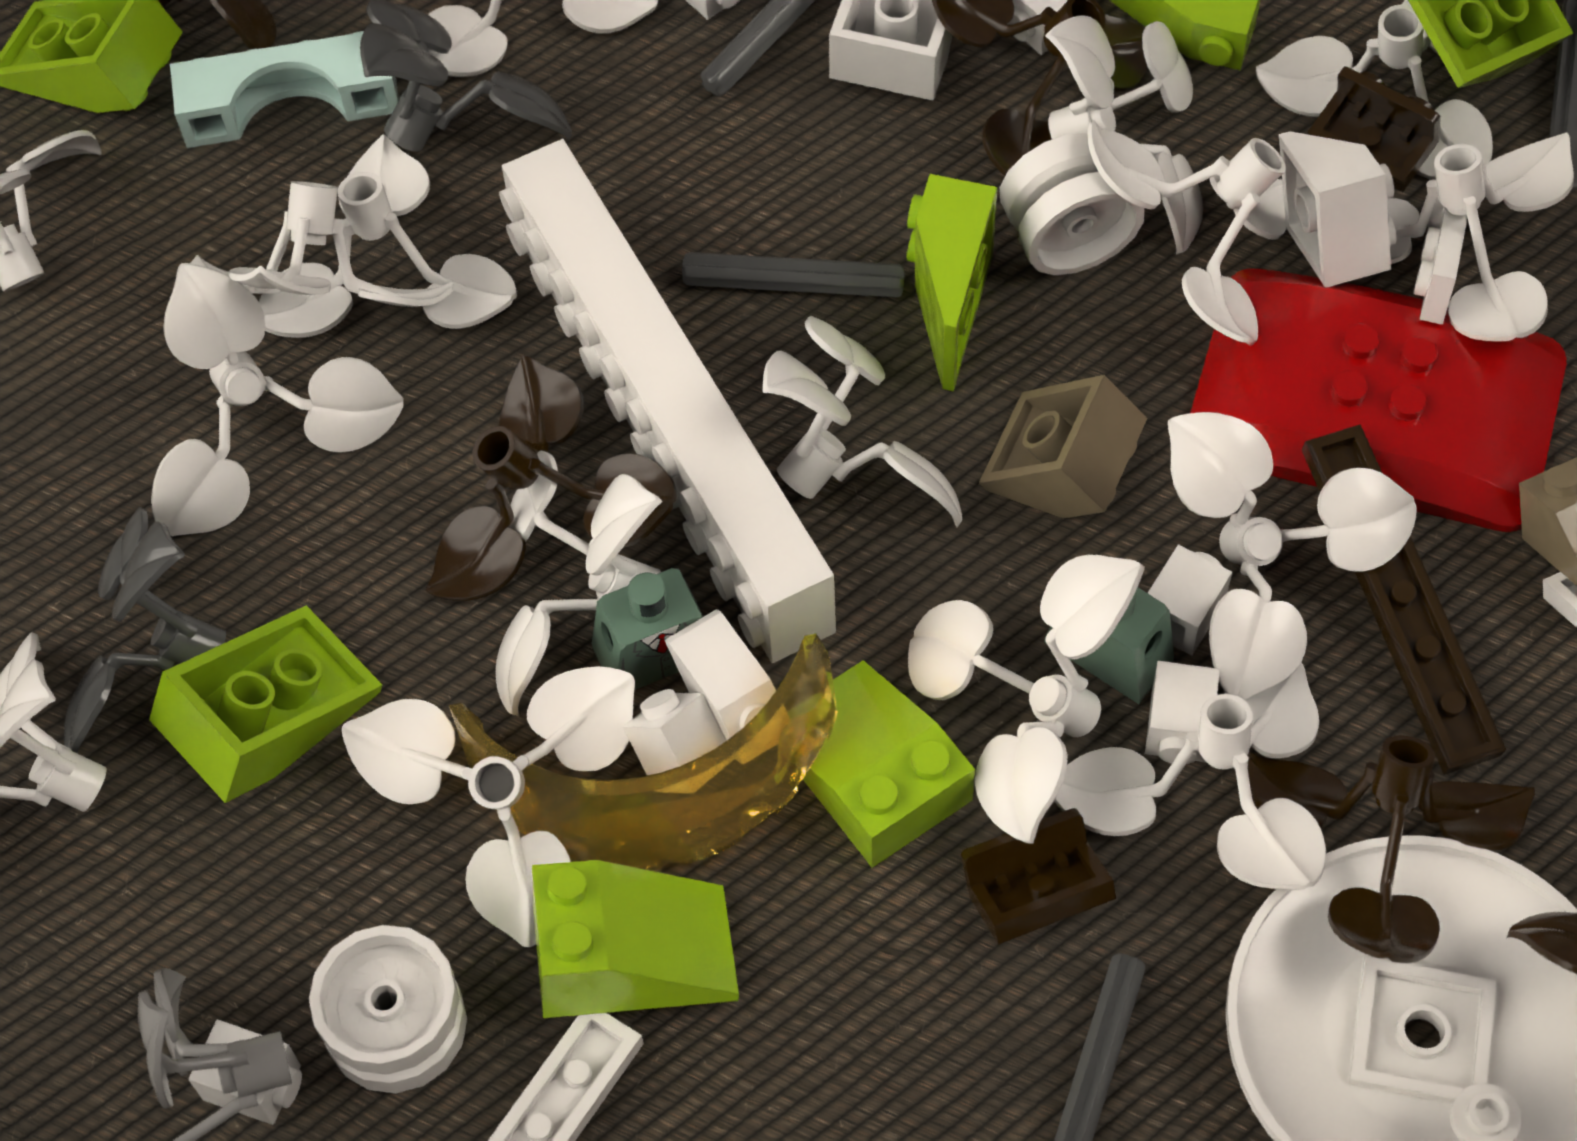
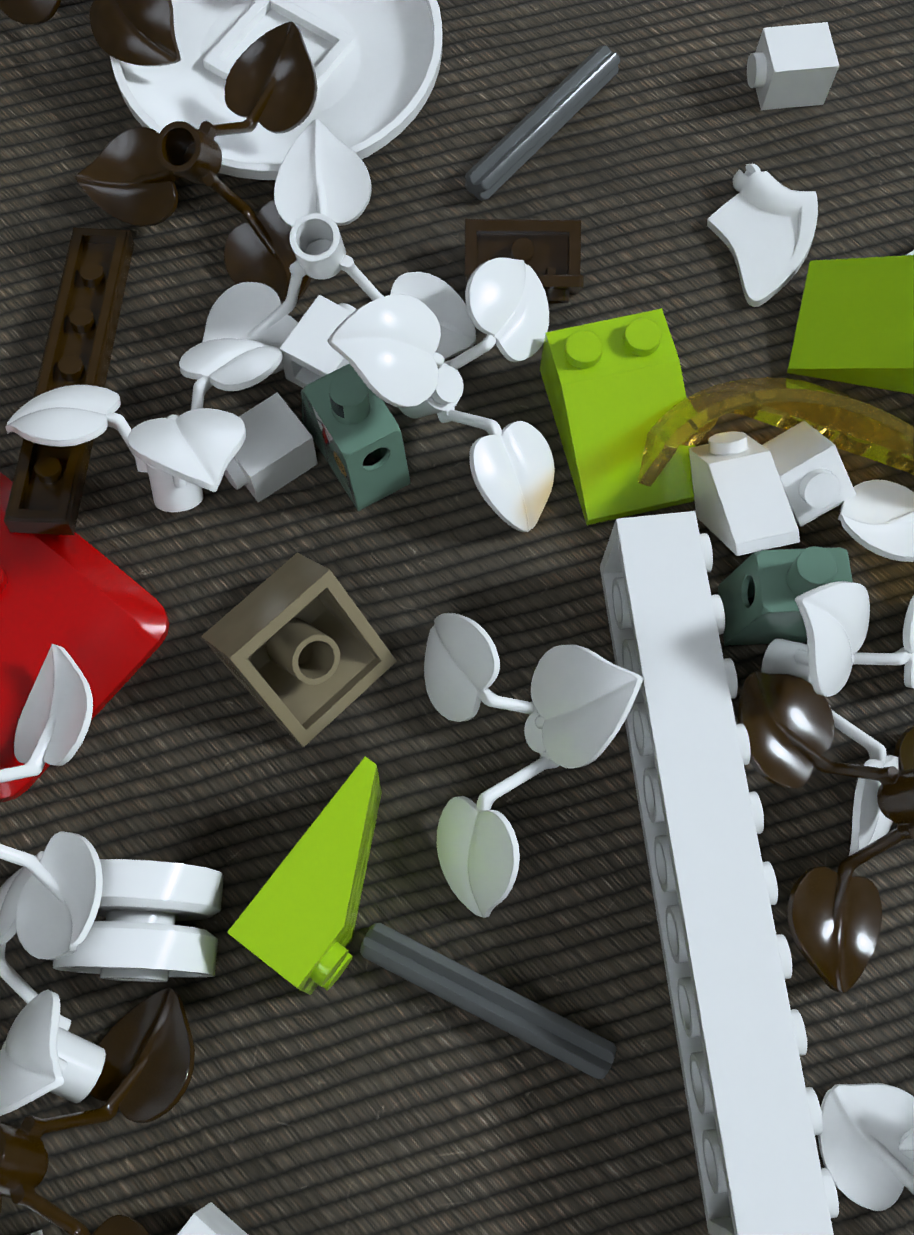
camera: 165 degrees left, 10 degrees up
(797, 1036) = (765, 231): none -> white arm

